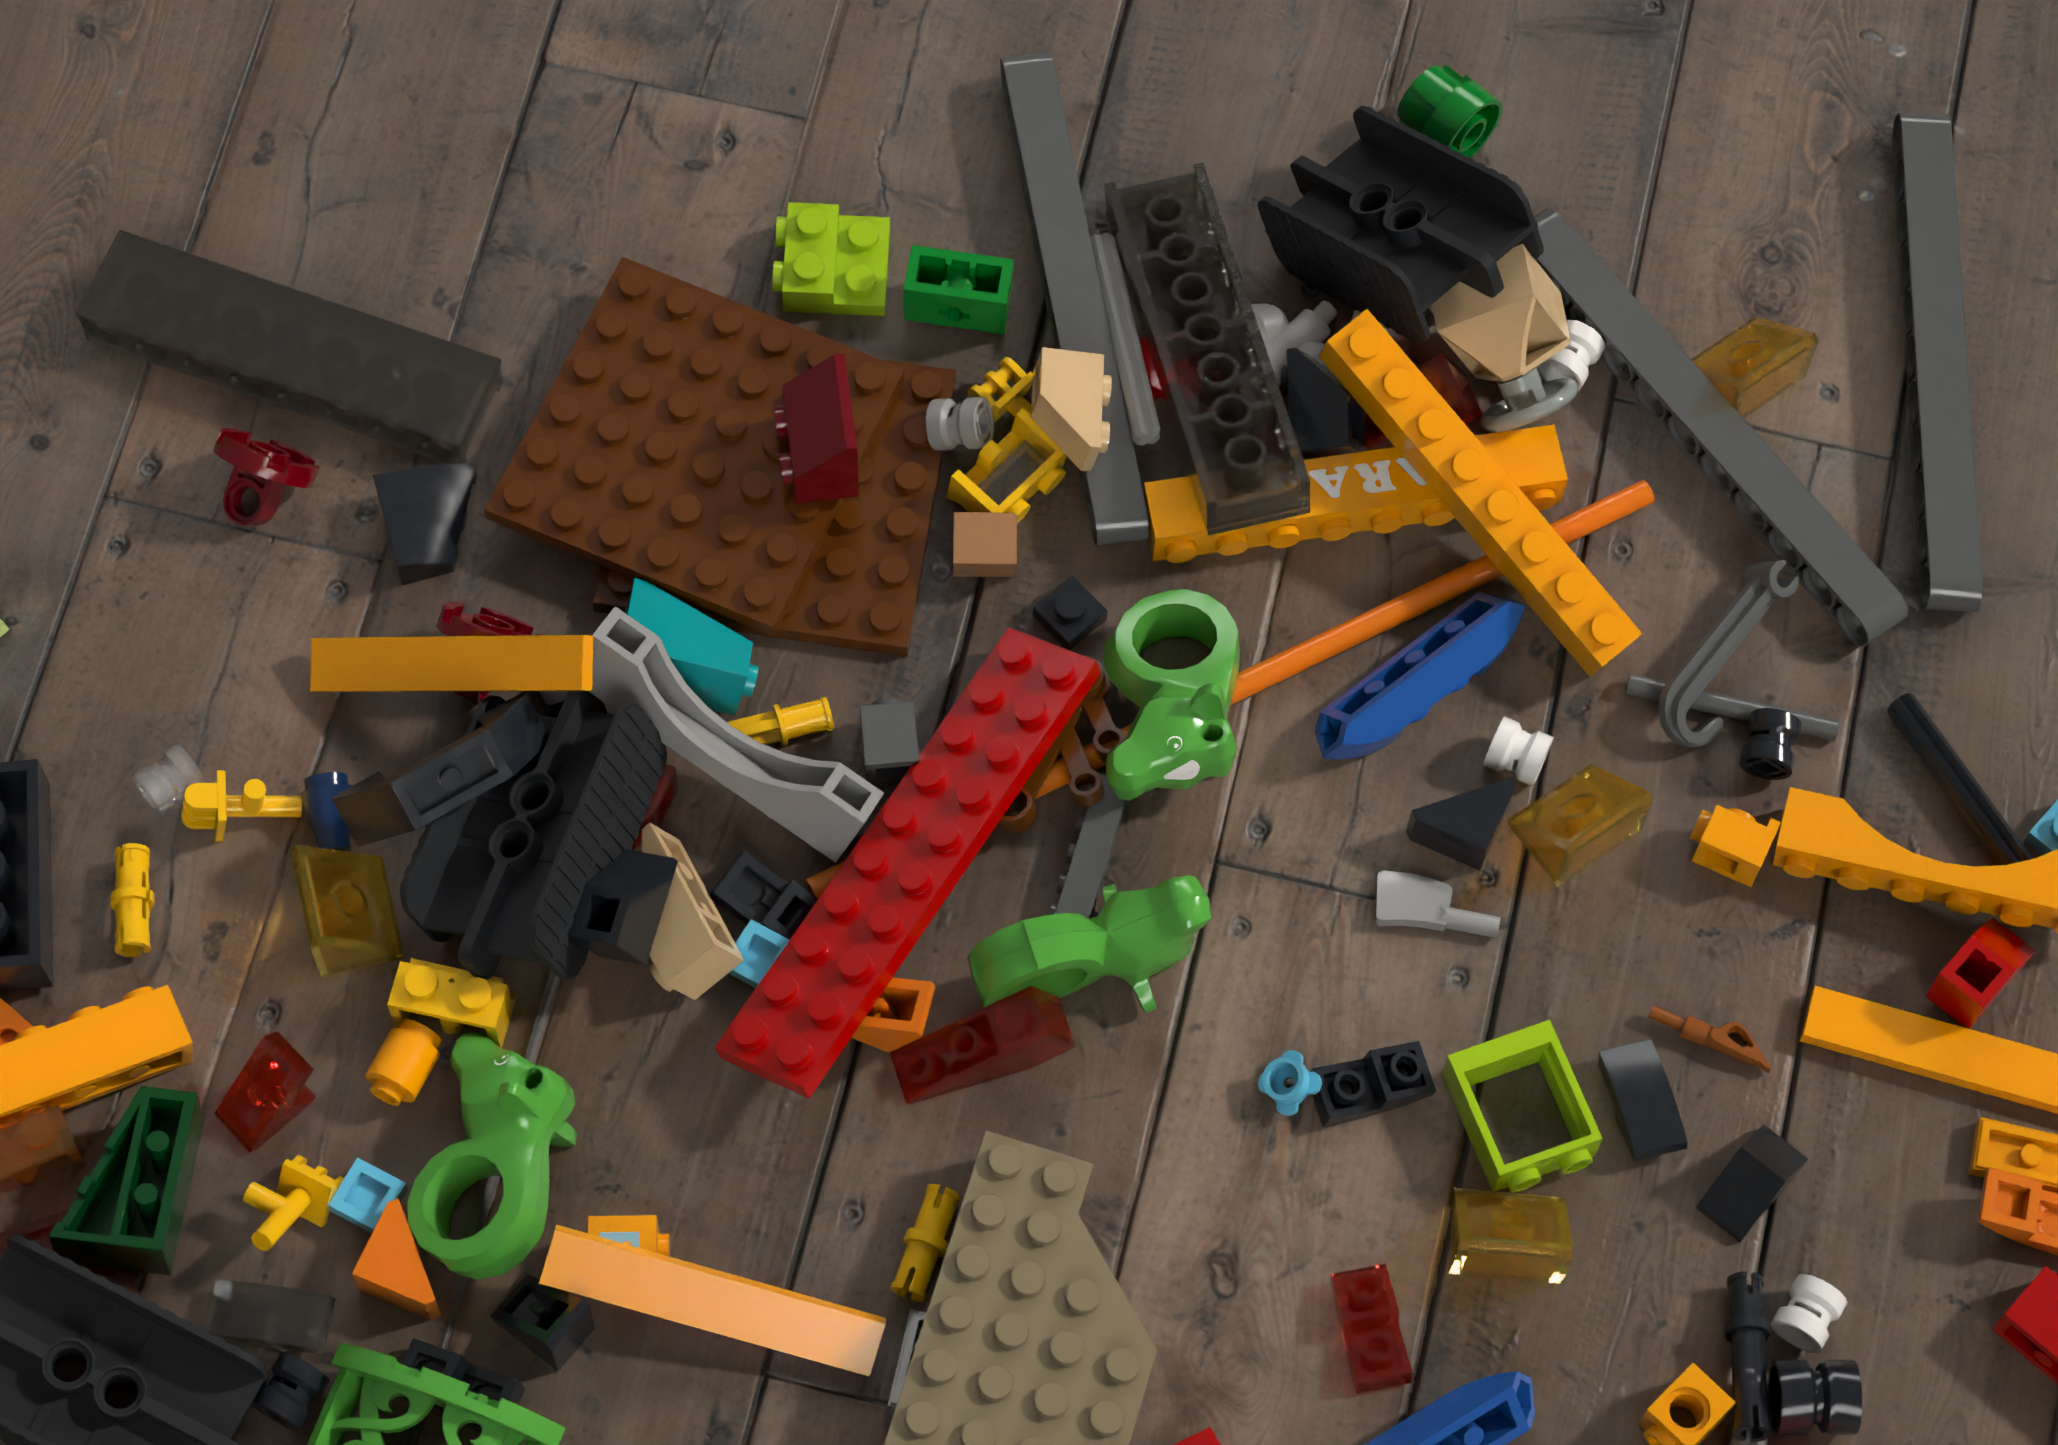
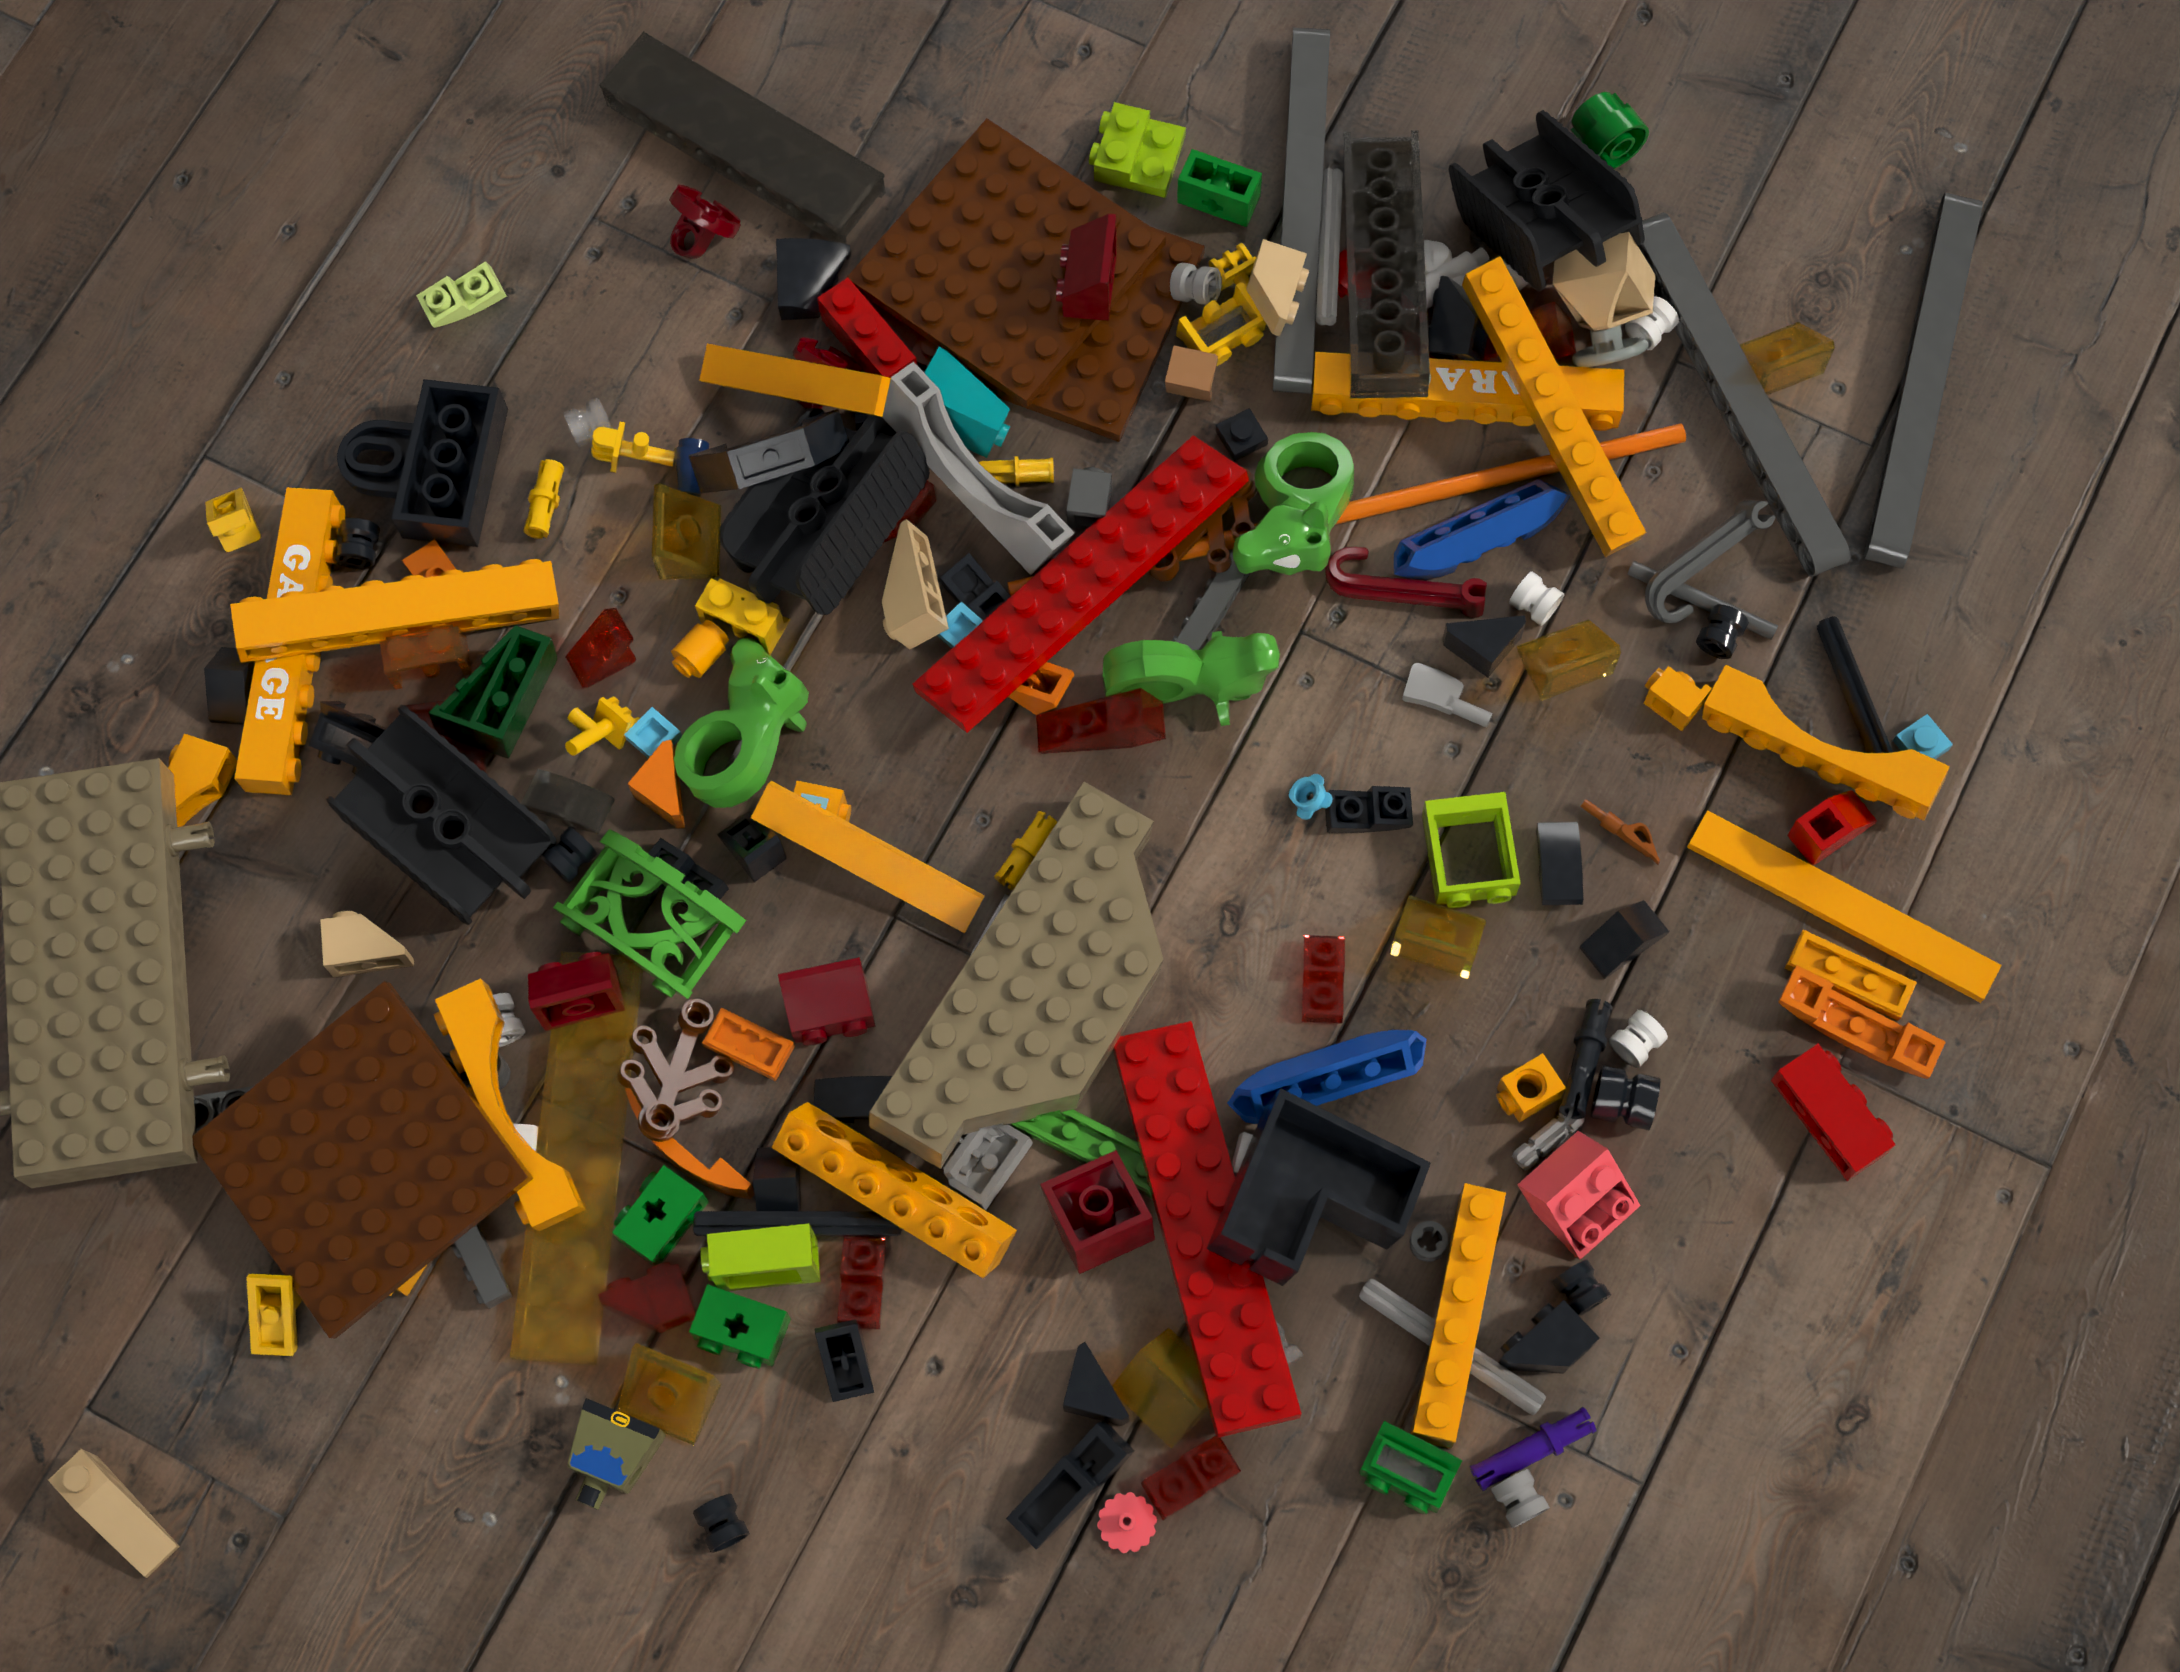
camera: 20 degrees right, 5 degrees up
(527, 579) = (863, 330): none -> red brick
(624, 906) = (871, 572): black slope -> none
(1424, 769) = (1466, 597): none -> dark red piece

